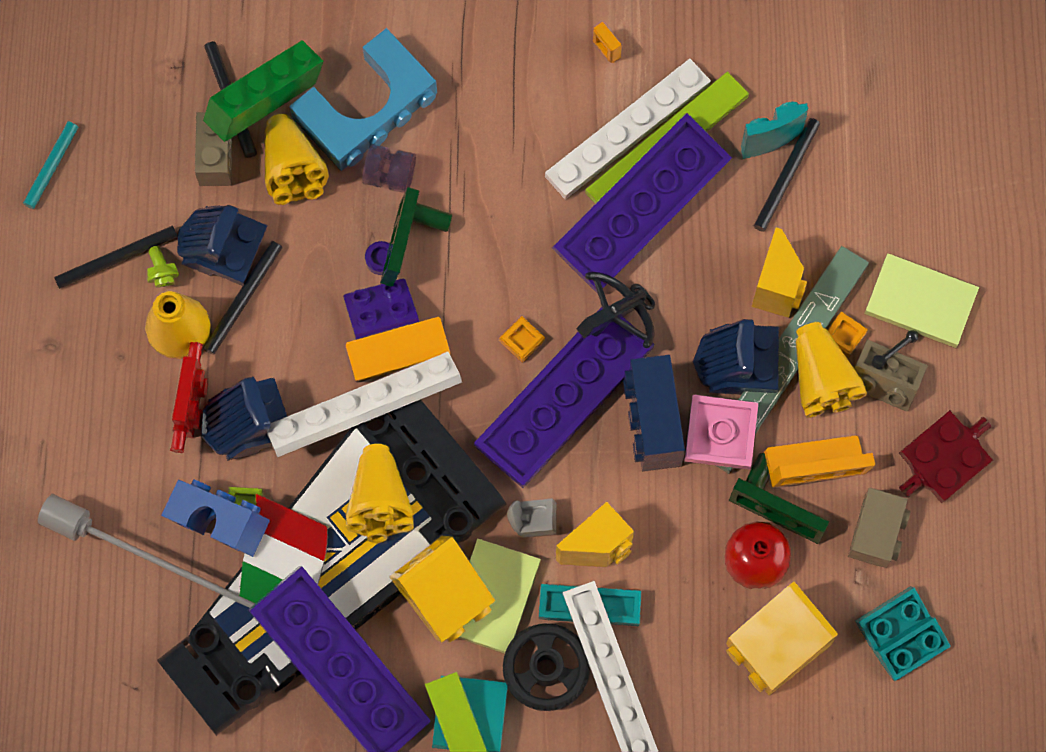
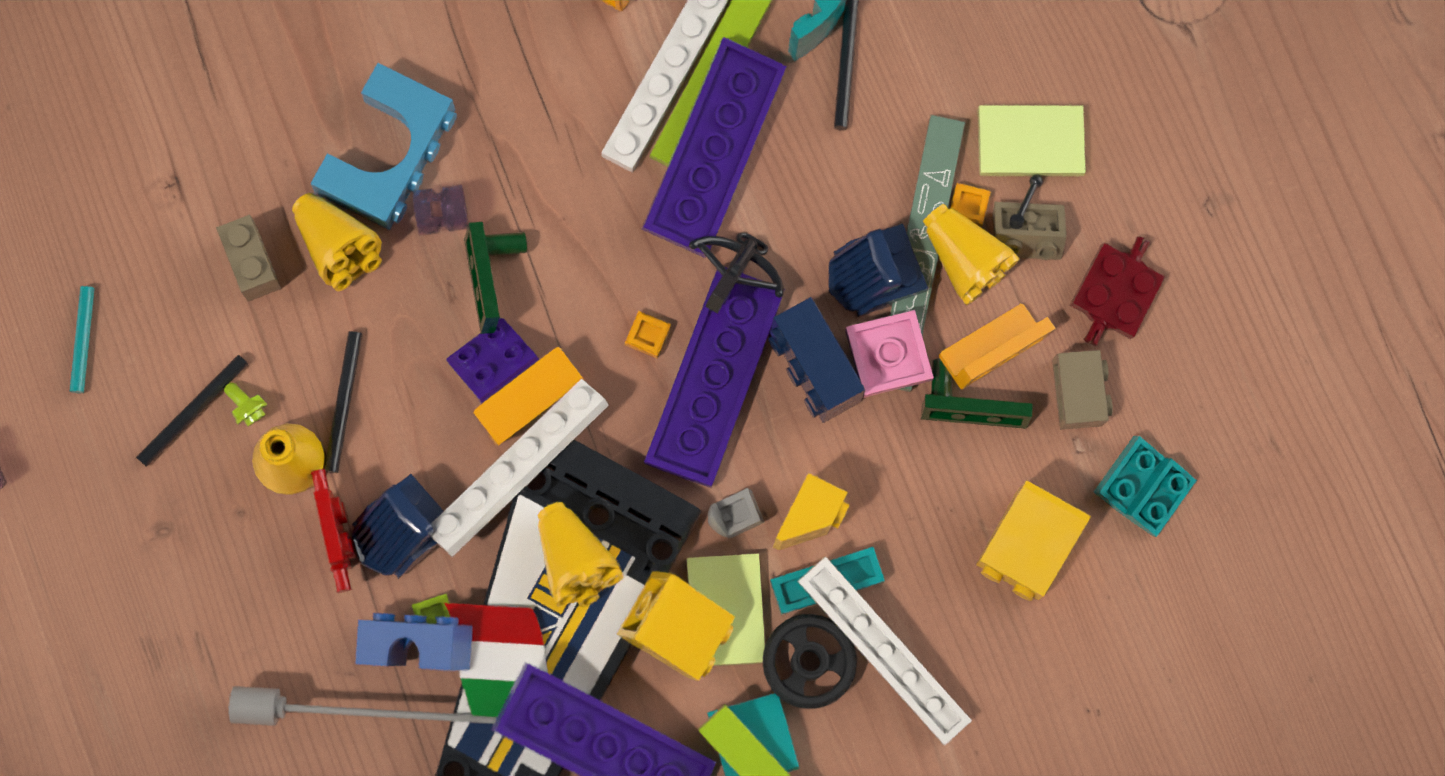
camera: 30 degrees left, 5 degrees up
(220, 242) = (296, 354): dark blue piece -> none
(223, 81) = (242, 198): black bar -> none
(263, 90) = (277, 178): green brick -> none
(376, 256) = (464, 306): dark purple tile -> none
(749, 566) = (966, 478): red cylinder -> none
(780, 280) = (885, 172): yellow slope -> none

